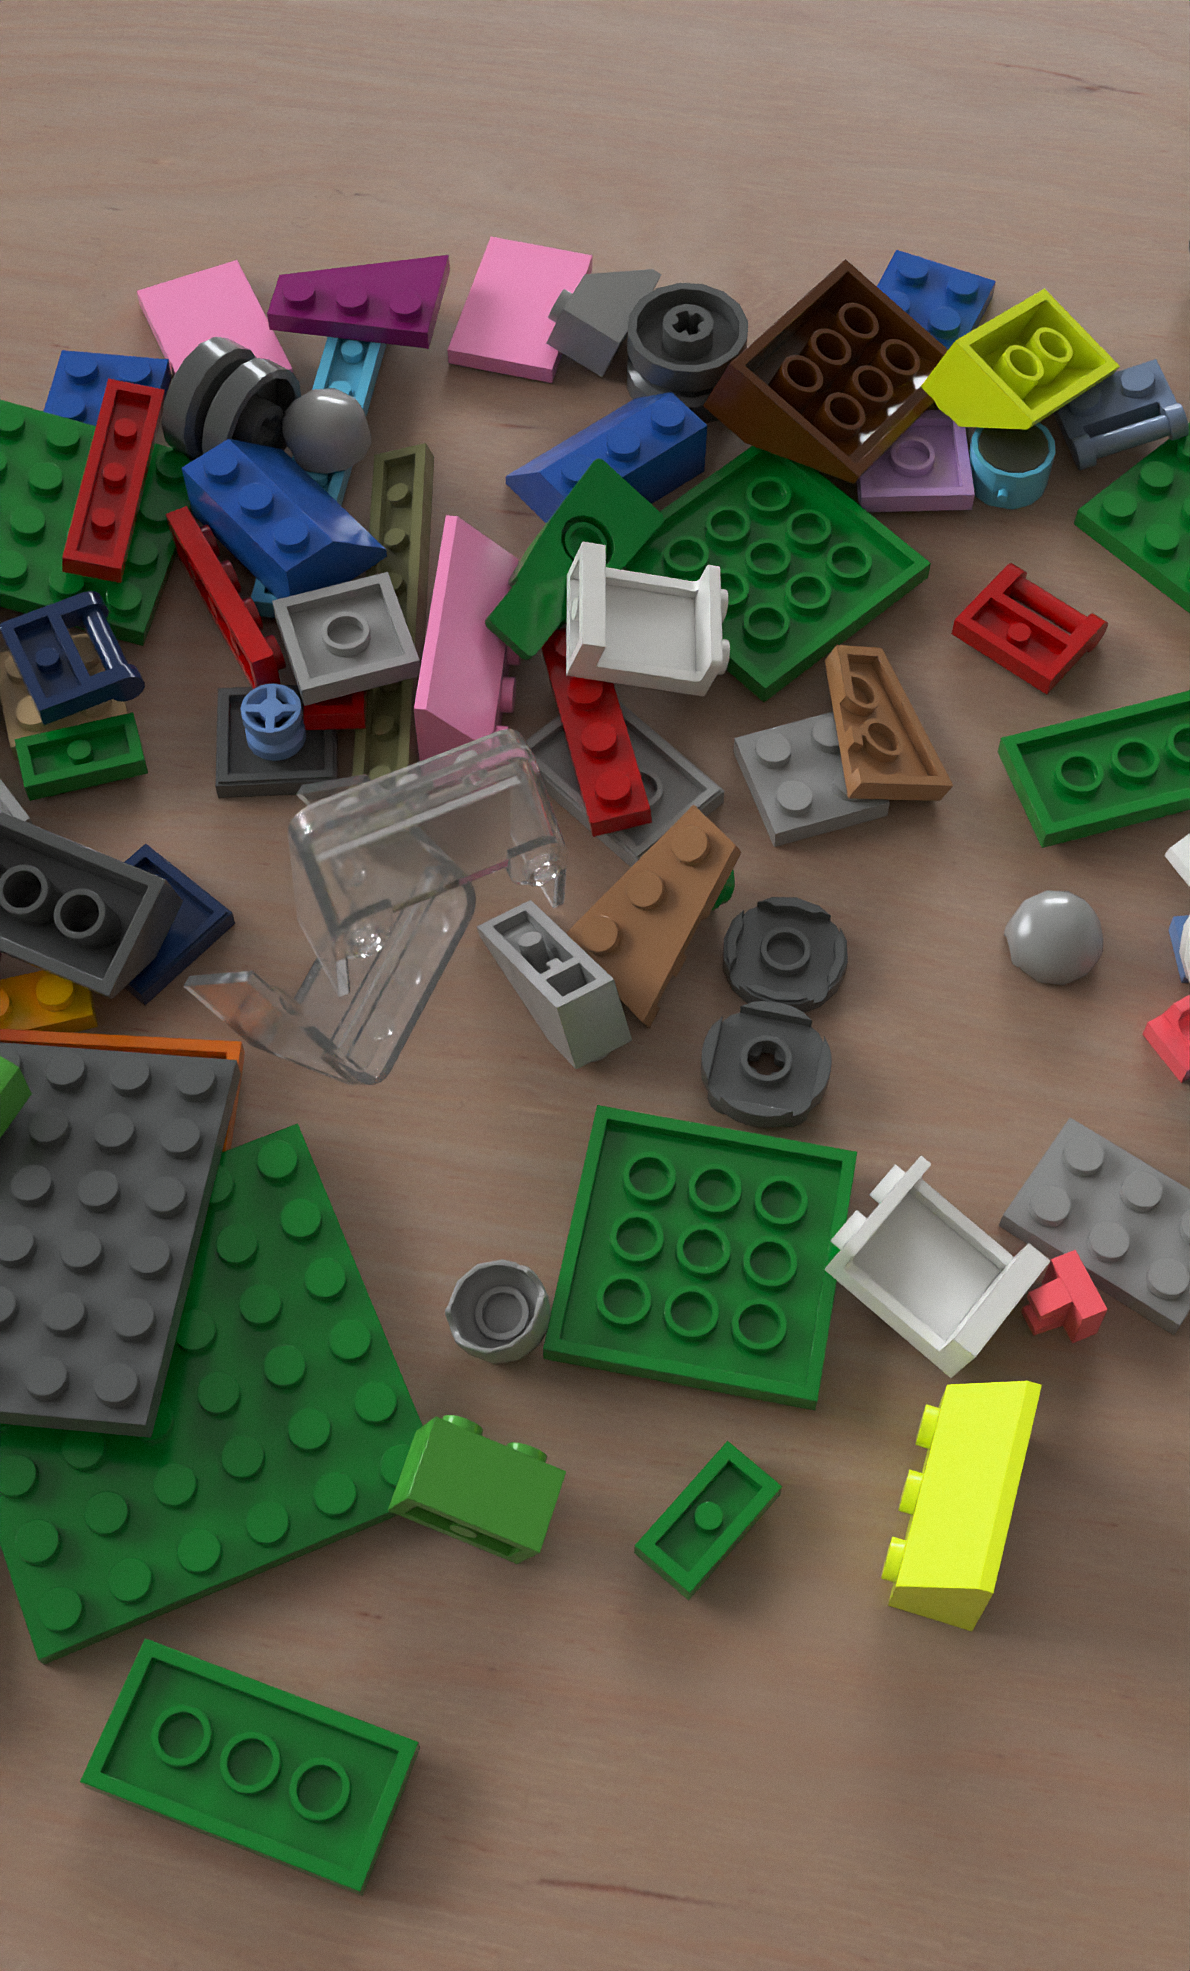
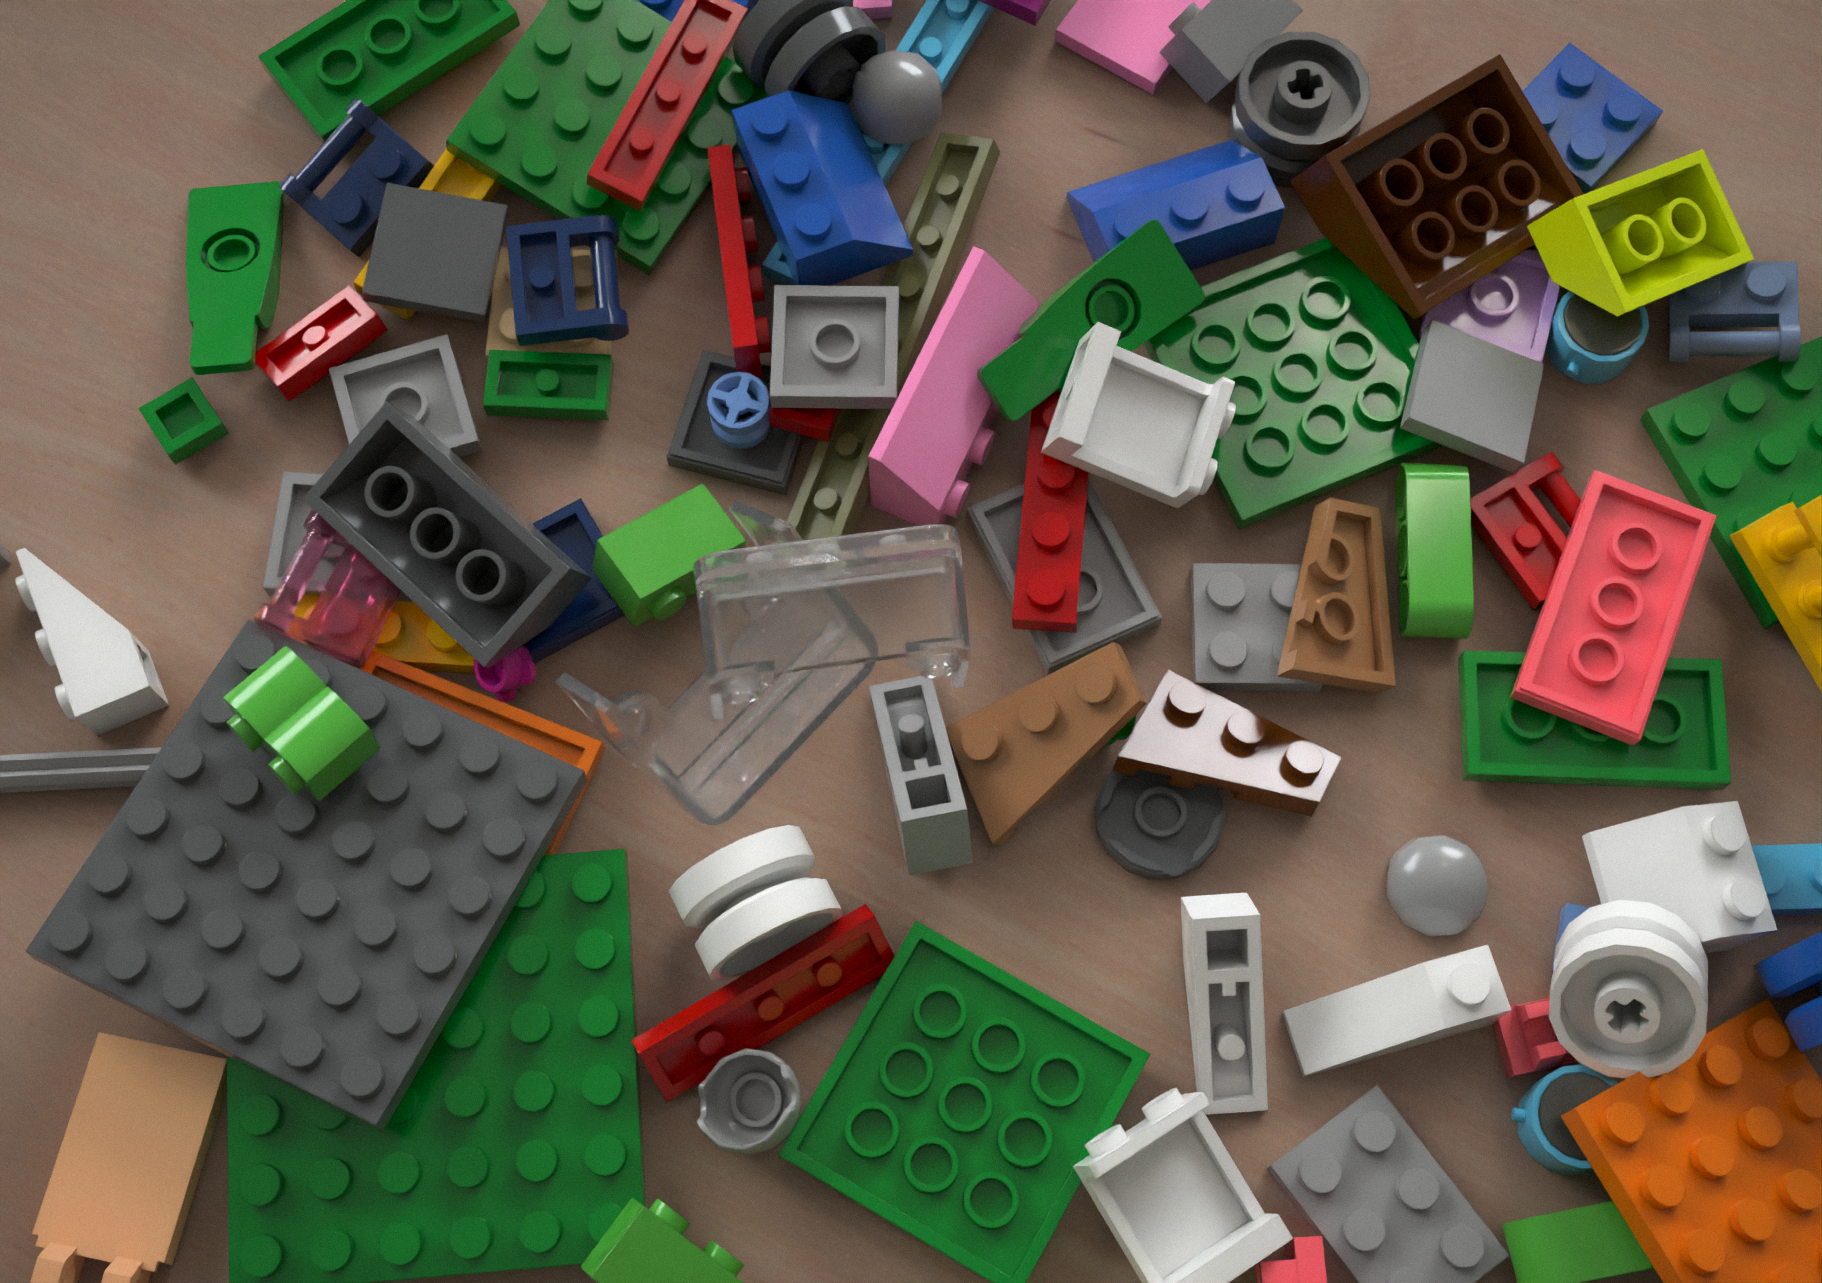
camera: 20 degrees right, 10 degrees up
(125, 1011) = (507, 674): none -> dark pink plate
(240, 864) = (652, 557): none -> bright green brick
(442, 1127) = (754, 900): none -> white wheel
(479, 1221) = (765, 1001): none -> red plate
(765, 1099) = (1060, 941): dark grey plate -> none
(810, 874) = (1221, 744): none -> wing
(907, 1084) = (1225, 1000): none -> white slope
(927, 534) = (1472, 396): none -> light grey tile
(943, 668) = (1434, 551): none -> bright green beam
(1065, 1048) = (1398, 1011): none -> white slope
(1116, 666) = (1613, 608): none -> coral tile

